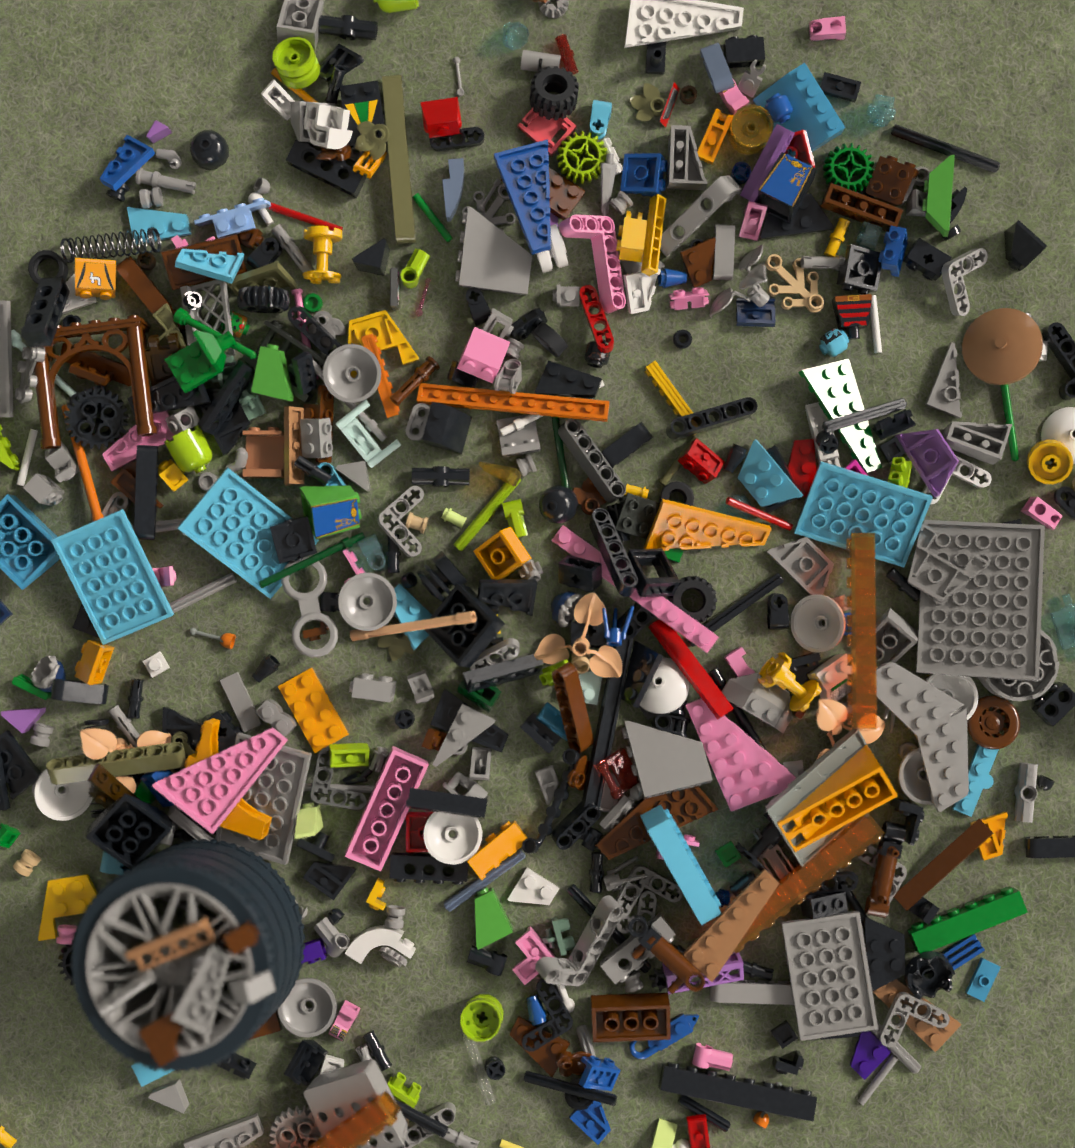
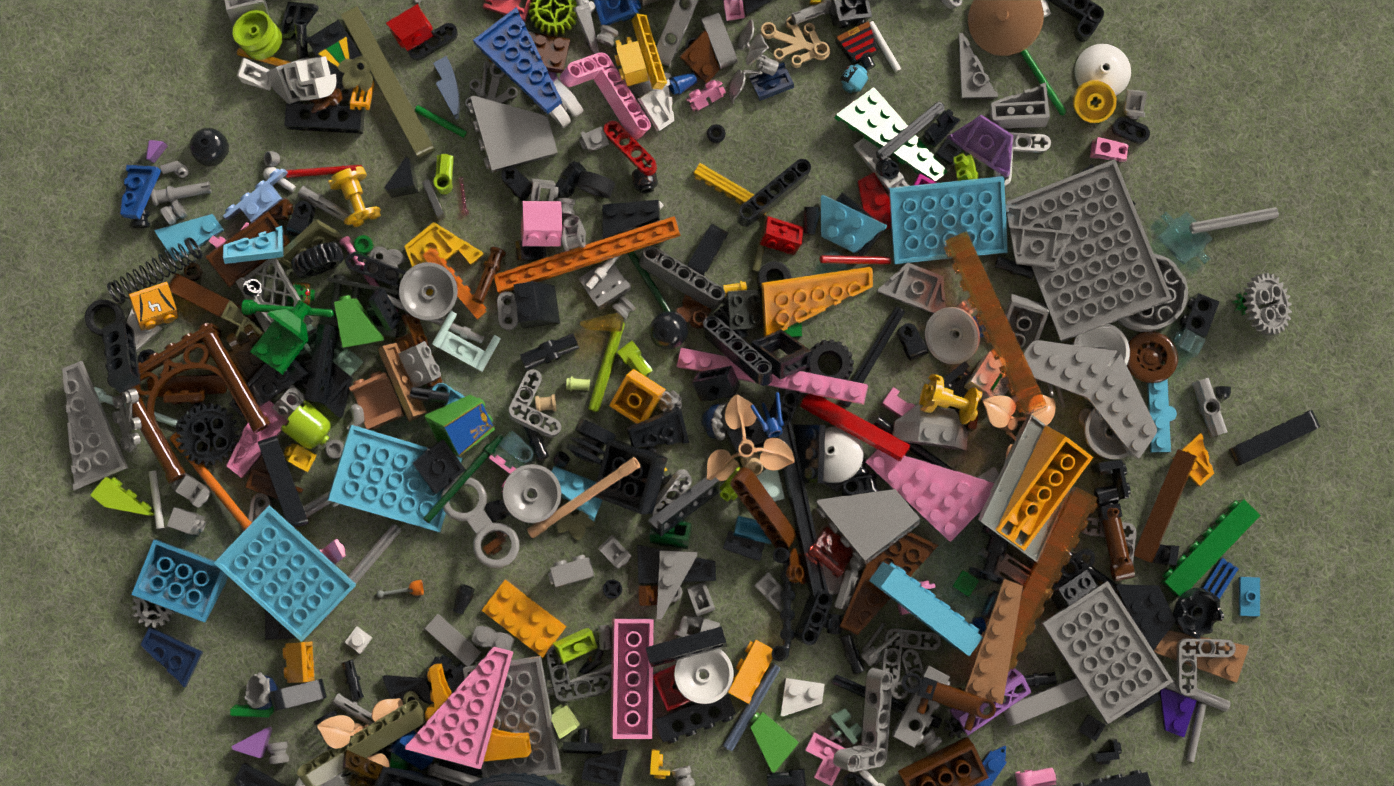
camera: 30 degrees left, 5 degrees down
(356, 472) = (470, 381): light grey slope -> none
(1034, 724) = (1188, 343): none -> clear light blue brick

